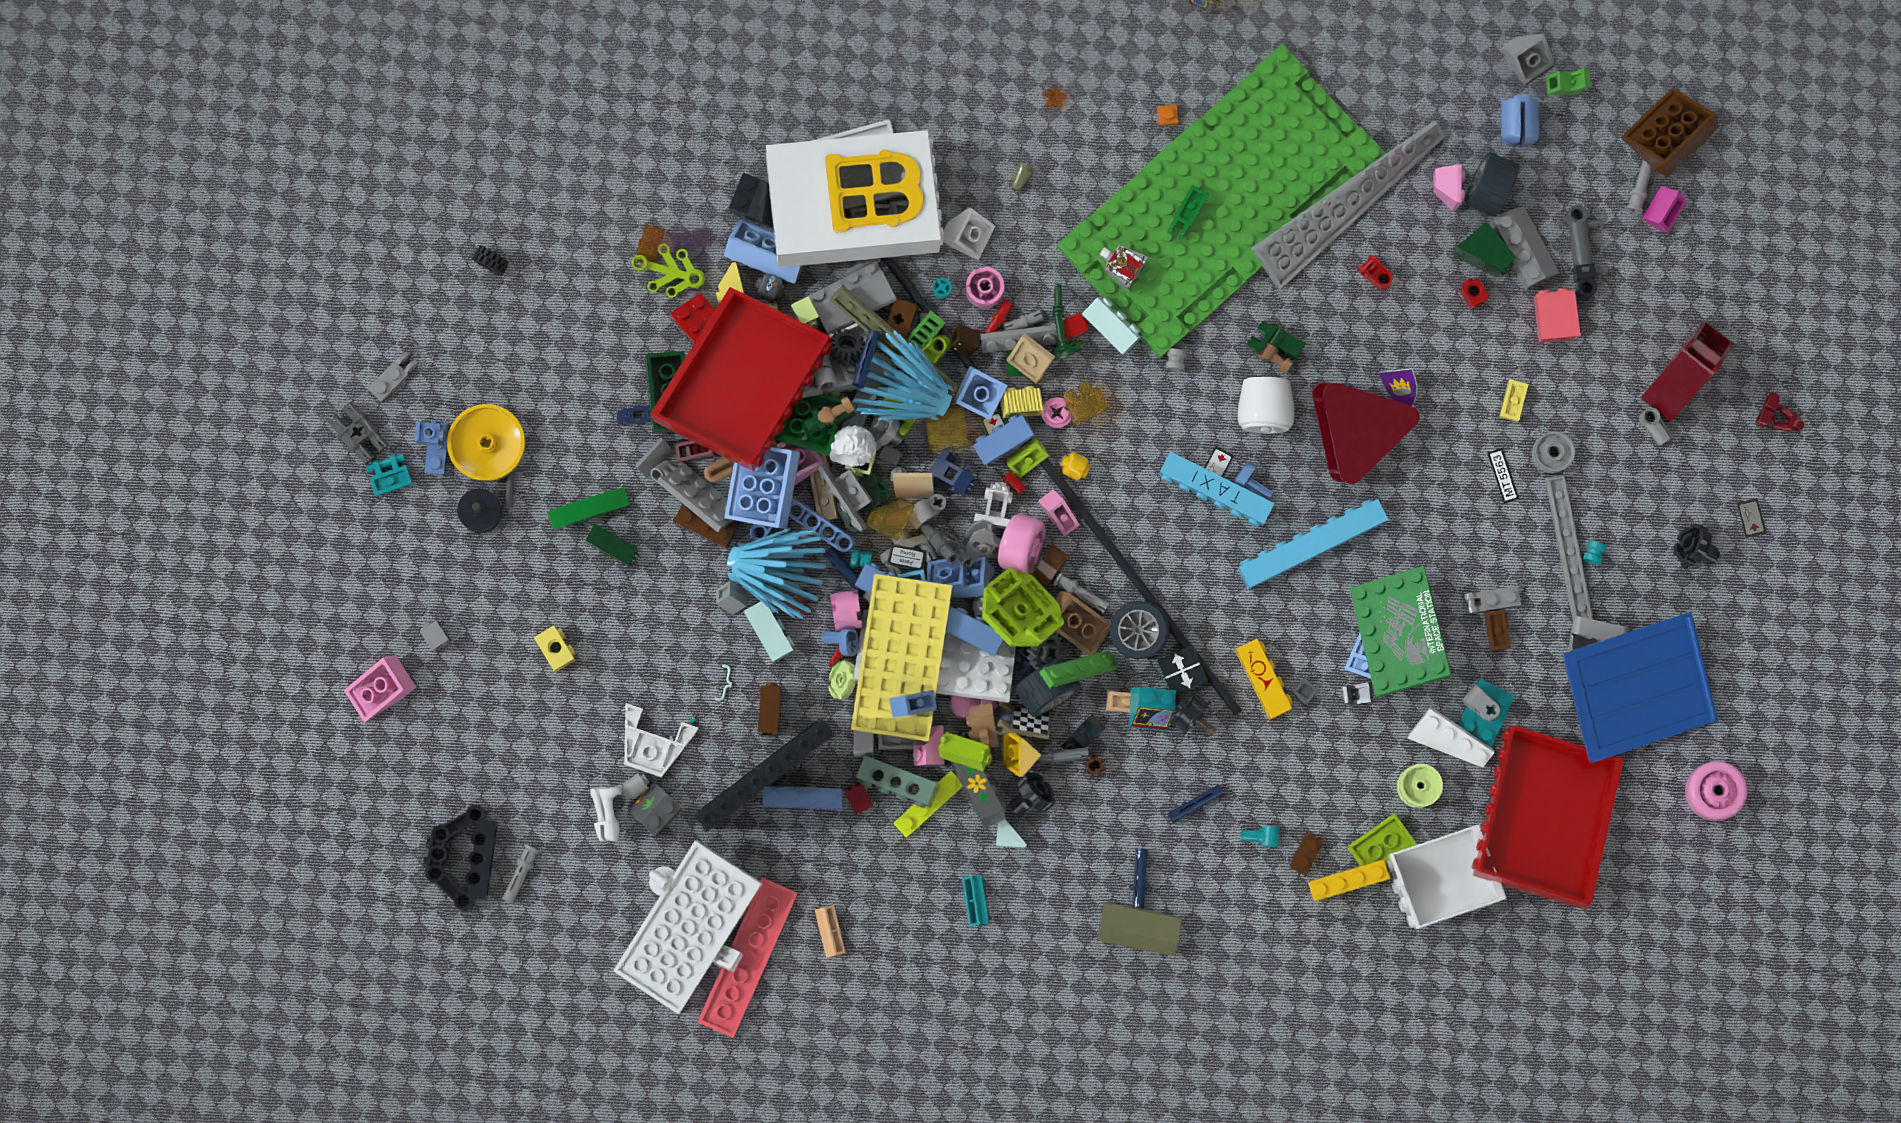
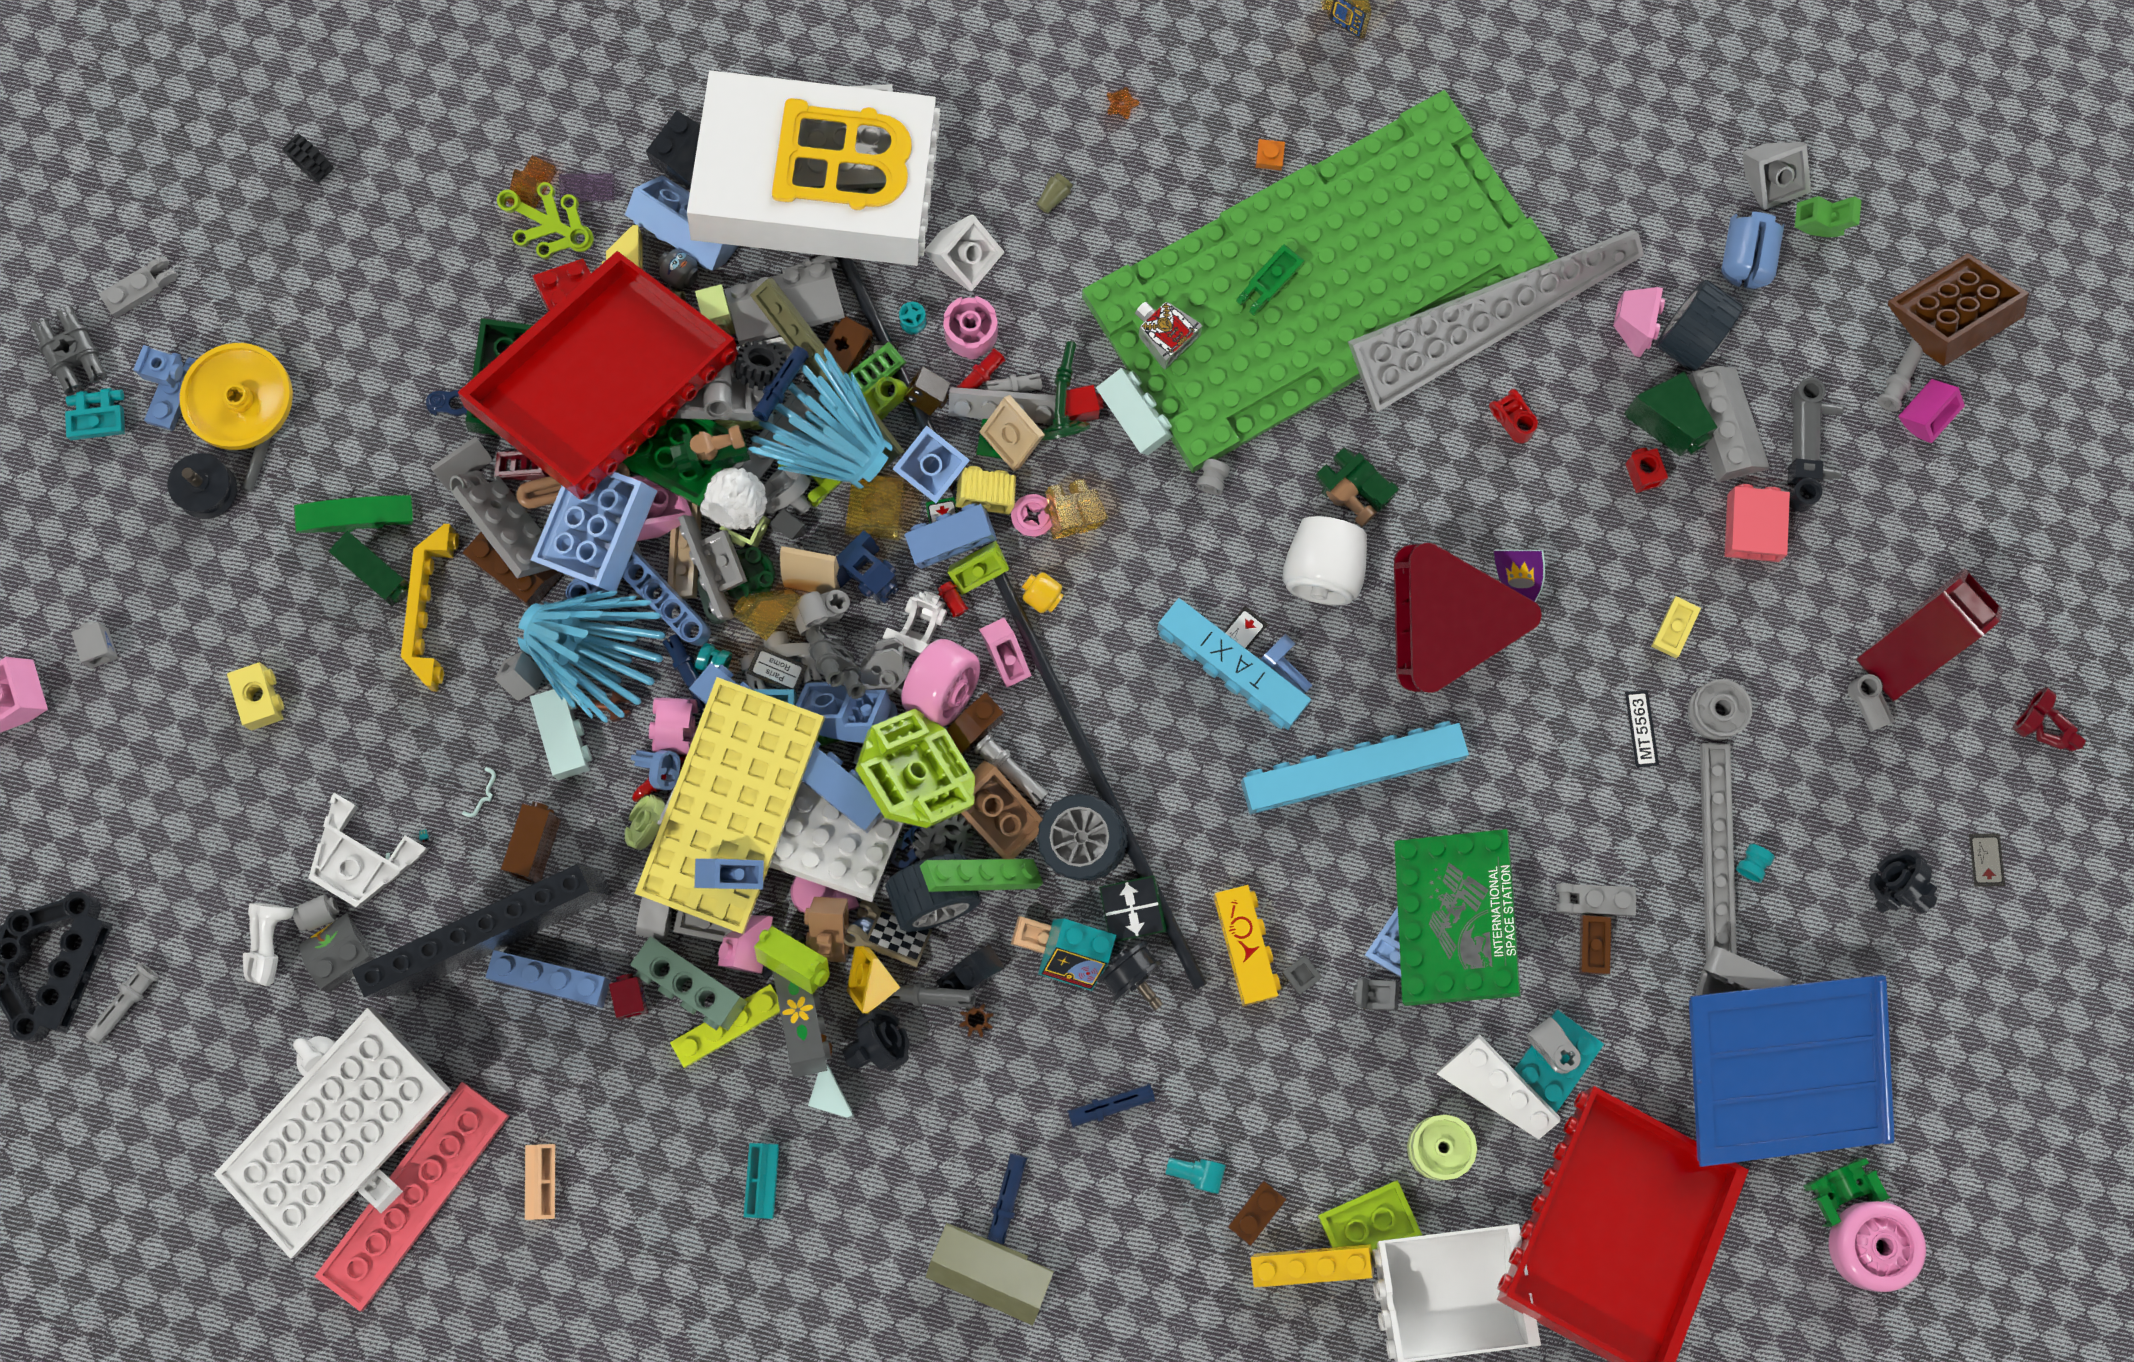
camera: 10 degrees right, 5 degrees down
(654, 518) = (438, 544): none -> yellow slope
(1689, 757) = (1842, 1188): none -> green piece

